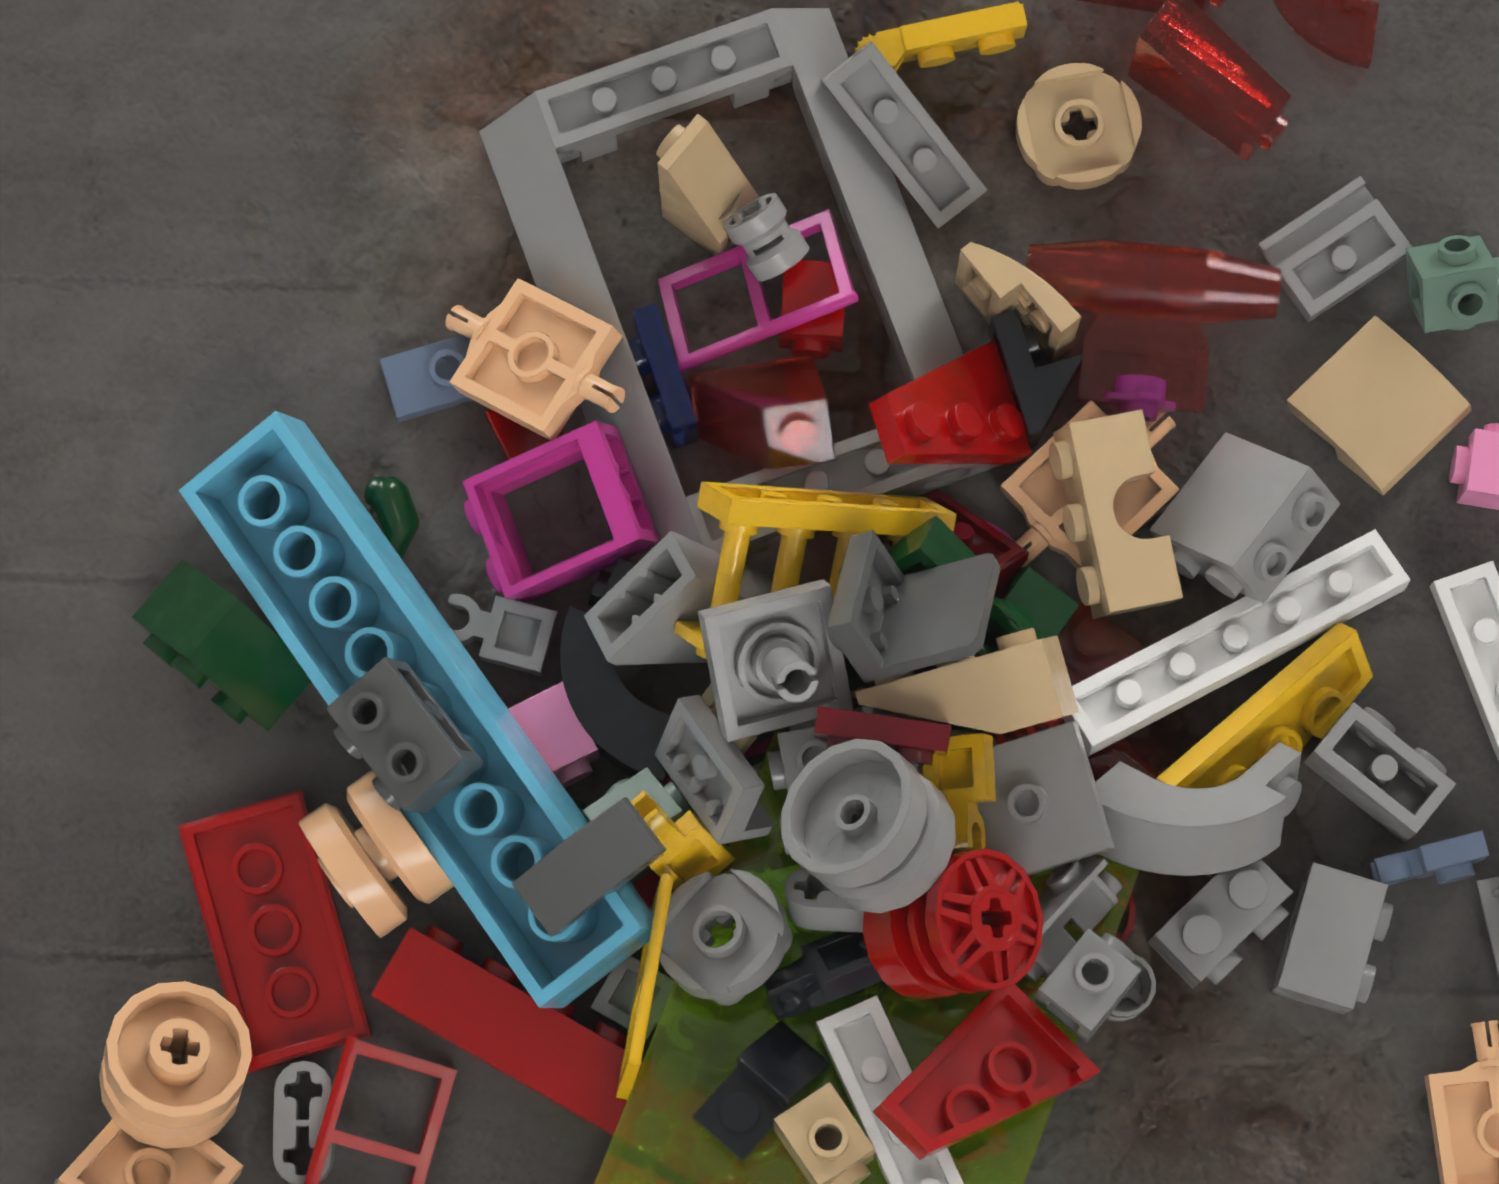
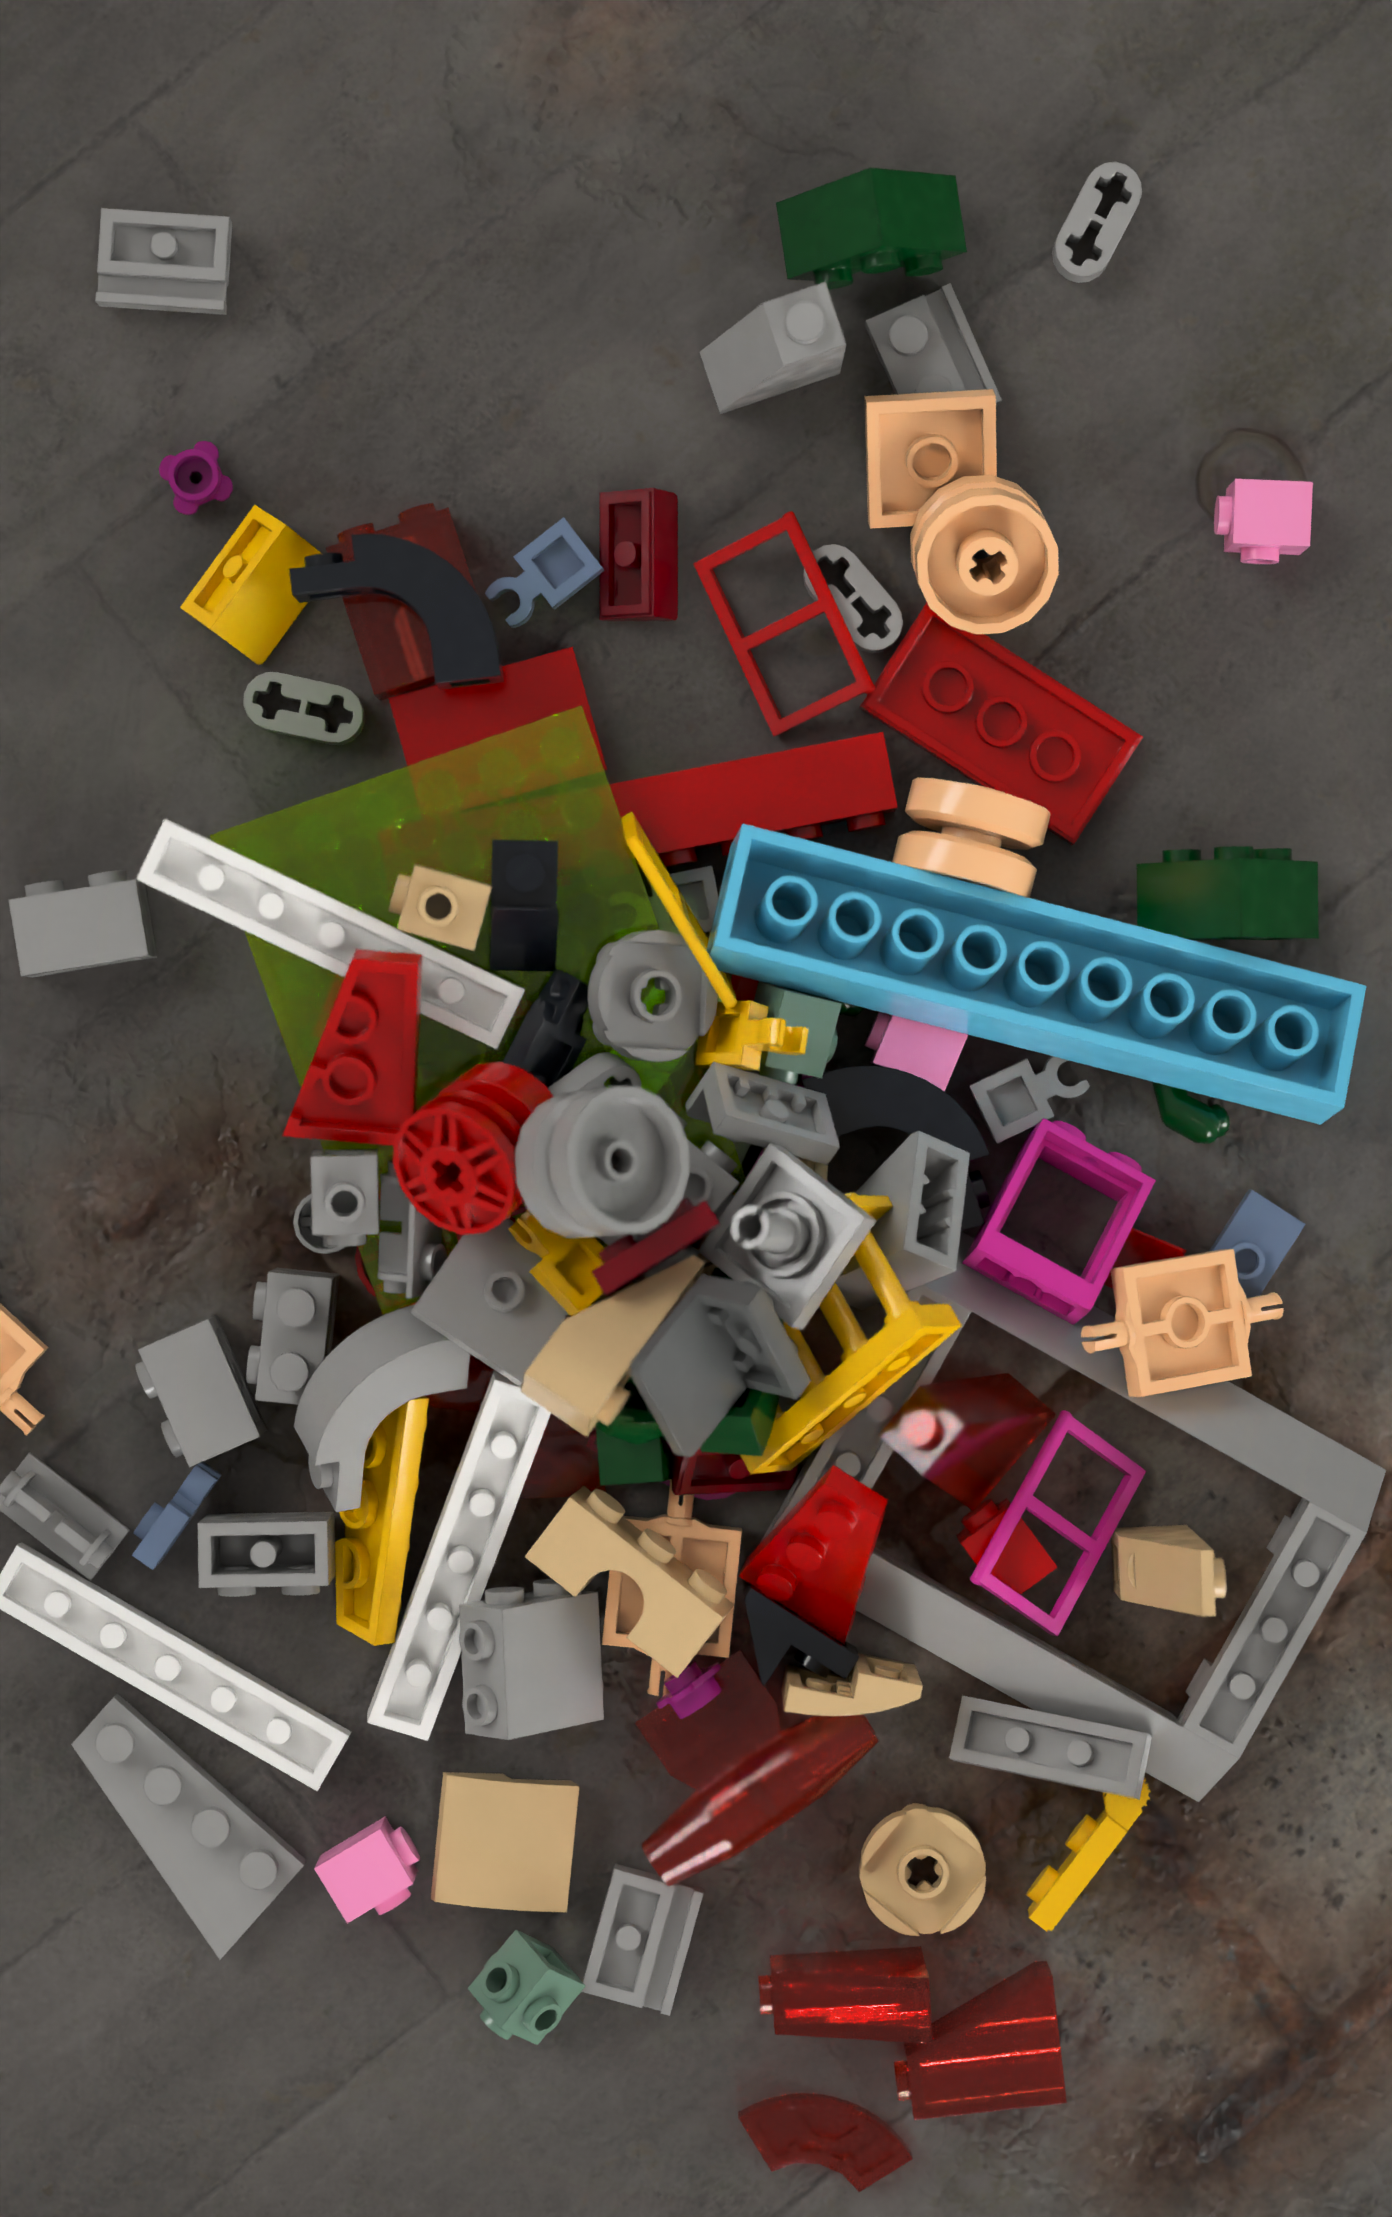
camera: 140 degrees right, 10 degrees up
(402, 737) = (1021, 937): dark grey brick -> none
(588, 866) = (792, 957): dark grey slope -> none
(655, 357) = (1096, 1405): clear blue plate -> none
(766, 237) = (1084, 1570): light grey wheel -> none

